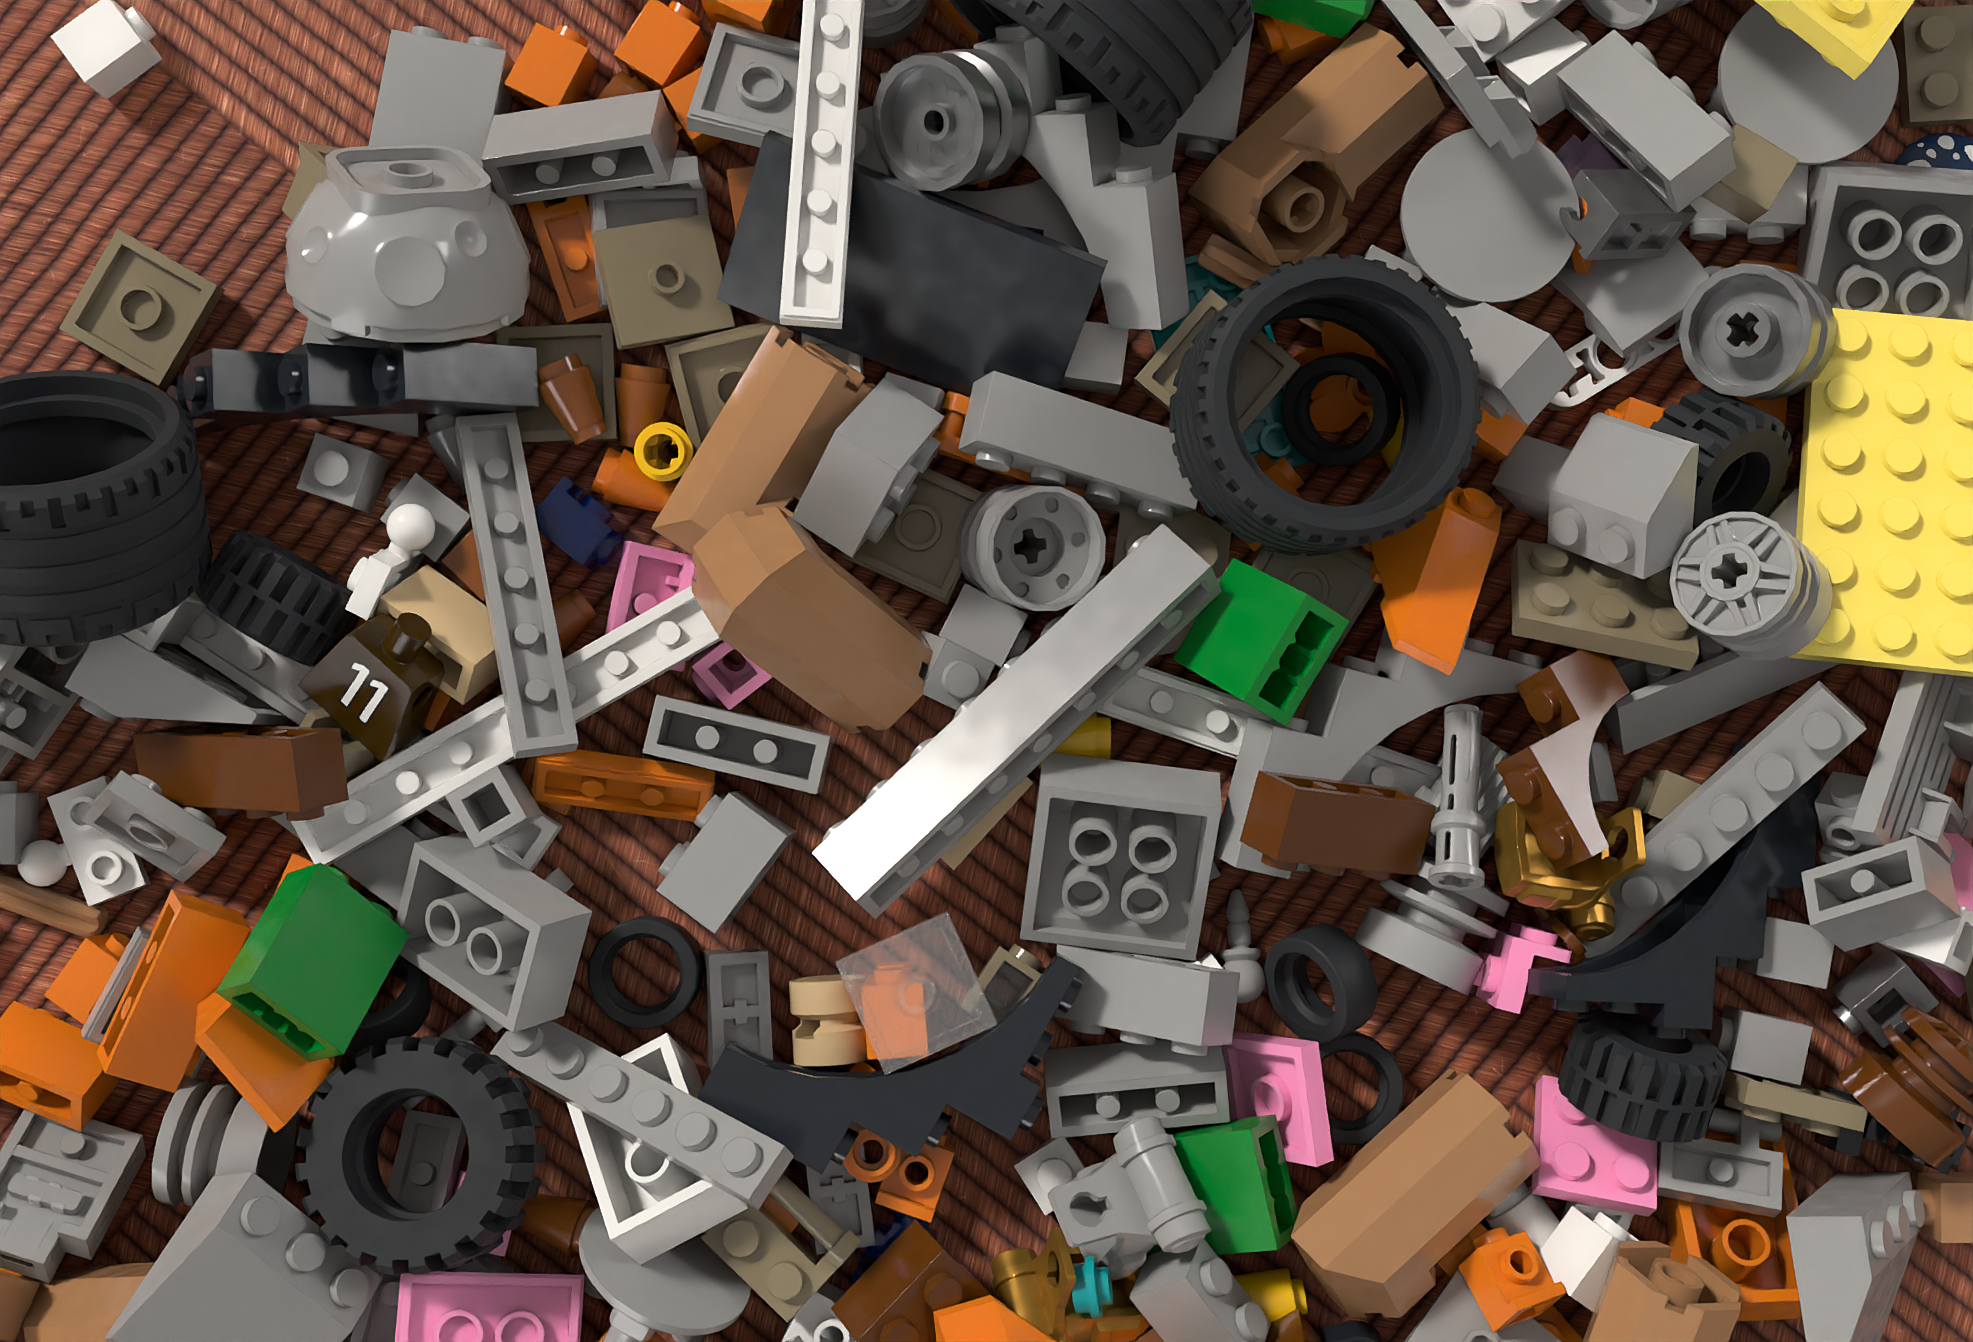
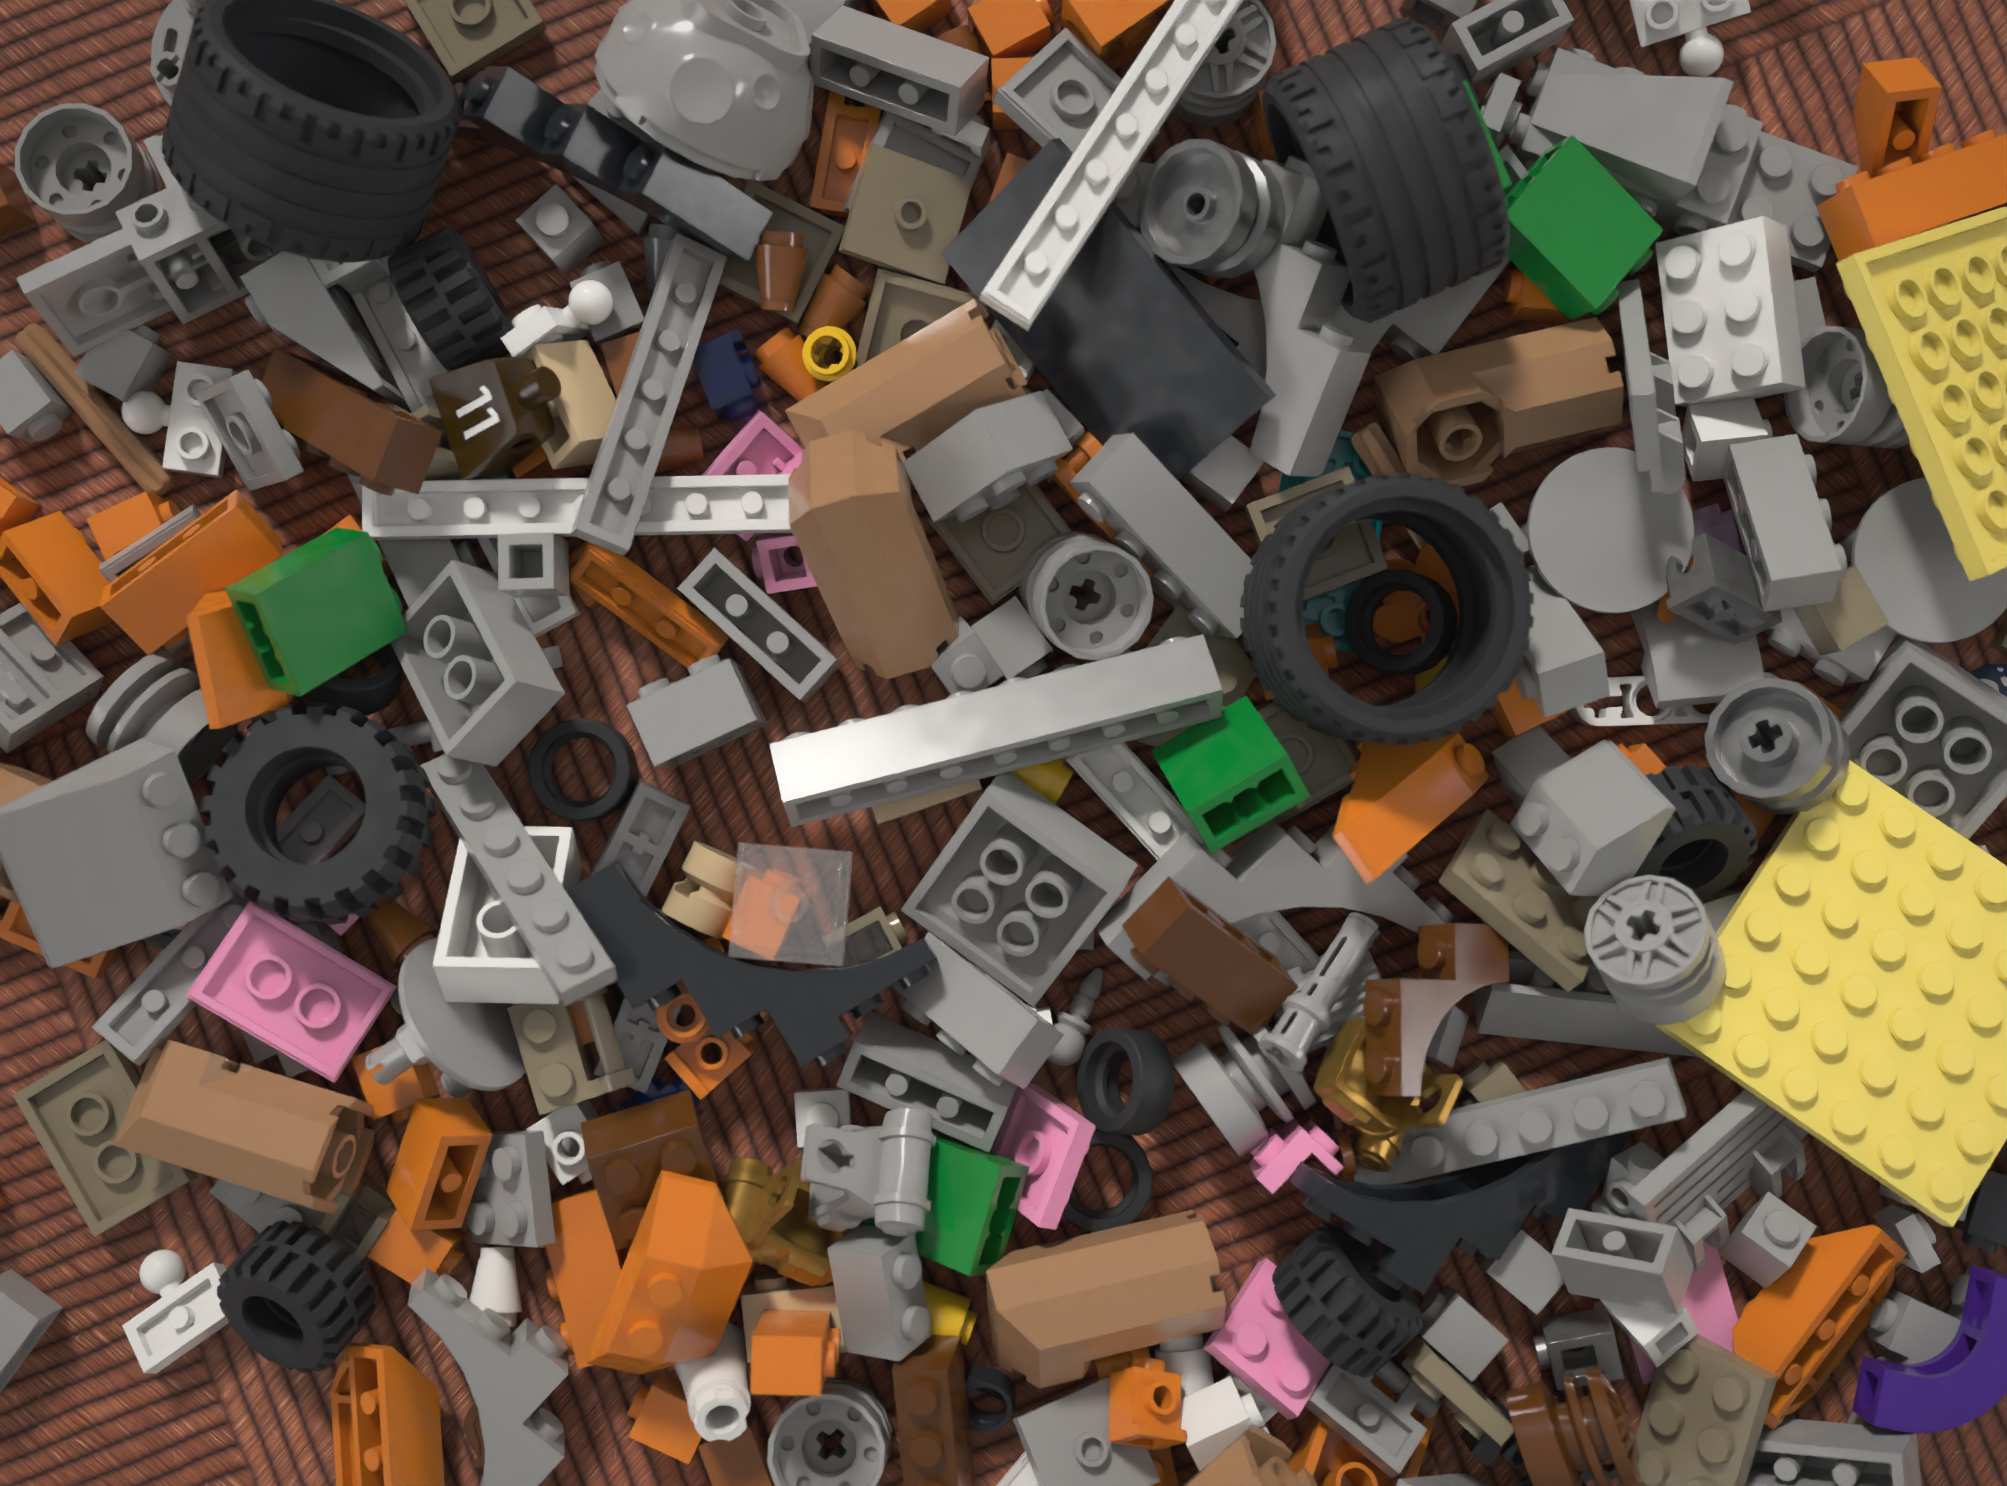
camera: 25 degrees right, 0 degrees up
(1091, 1287) = (801, 1223): teal plate -> none

